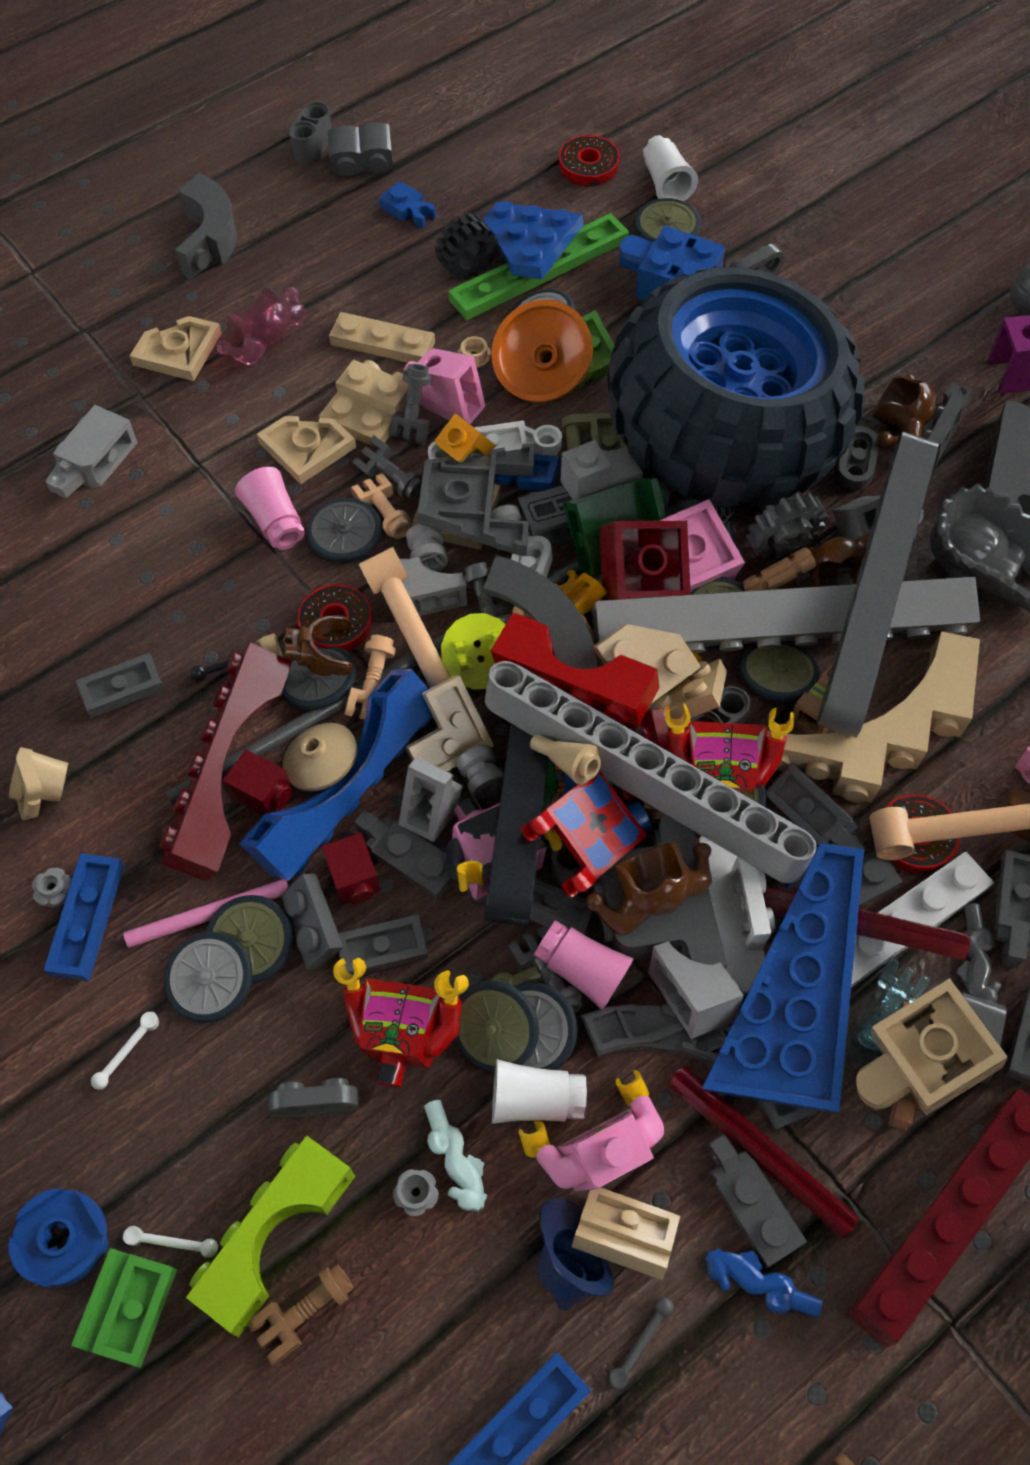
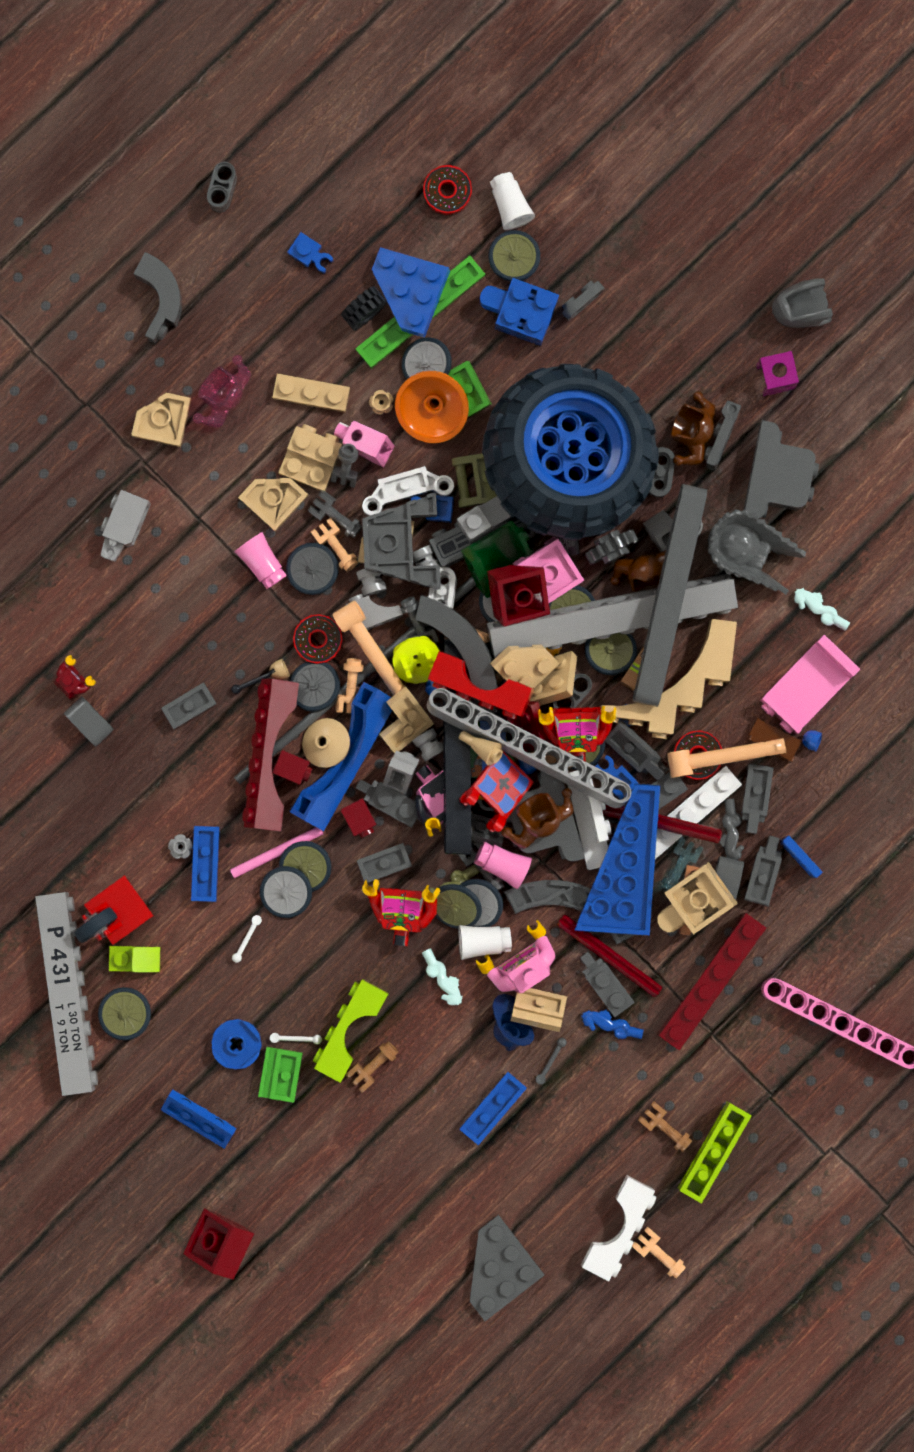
camera: 10 degrees left, 25 degrees up
(36, 779) = (155, 781): tan piece -> none
(295, 1100) = (370, 954): dark grey plate -> none
(307, 654) = (303, 673): reddish brown helmet -> none
(311, 921) = (340, 853): dark grey plate -> none
(360, 149) = (265, 202): dark grey brick -> none
(403, 1192) = (430, 999): light grey plate -> none
(461, 438) = (387, 498): light orange bracket -> none
(582, 591) = (478, 610): light orange plate -> none
(698, 993) = (569, 875): light grey arch -> none
(781, 572) = (607, 585): medium nougat axle -> none

